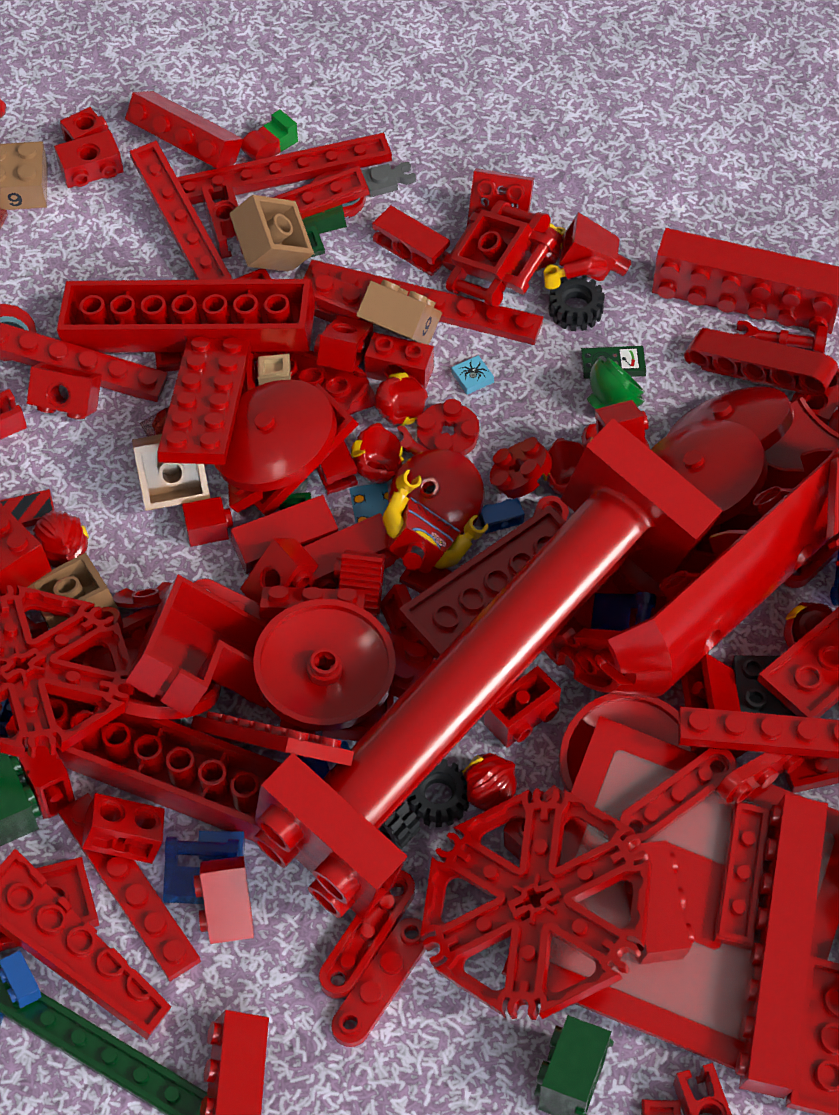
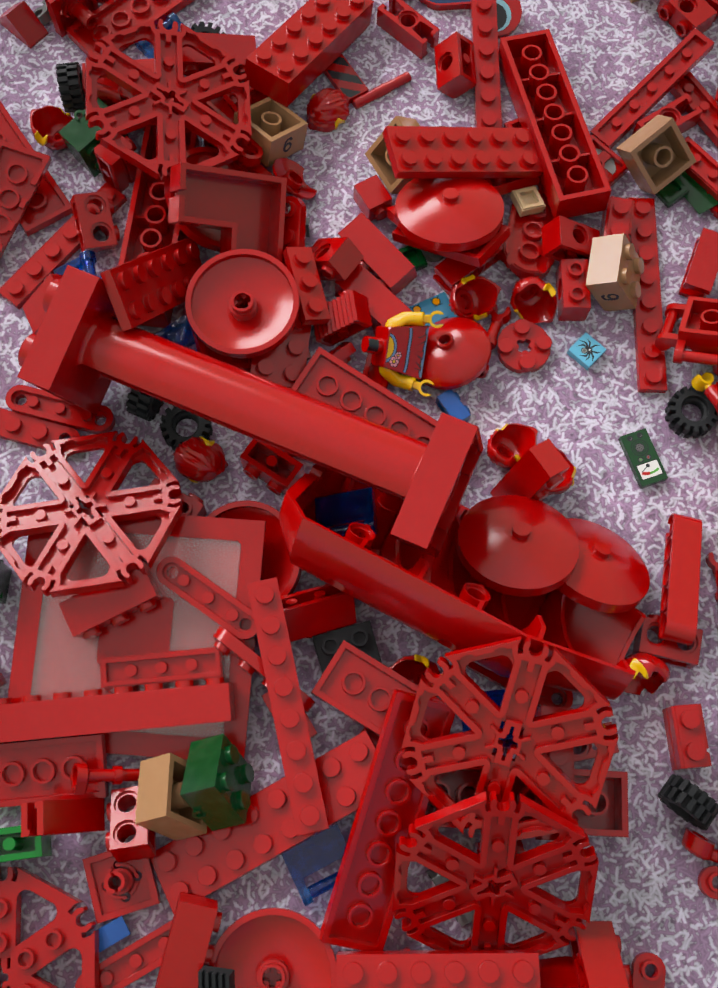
camera: 70 degrees right, 15 degrees up
(54, 477) = (381, 90): none -> red piece
(526, 456) = (498, 407): red plate -> none
(612, 385) = (609, 462): green piece -> none

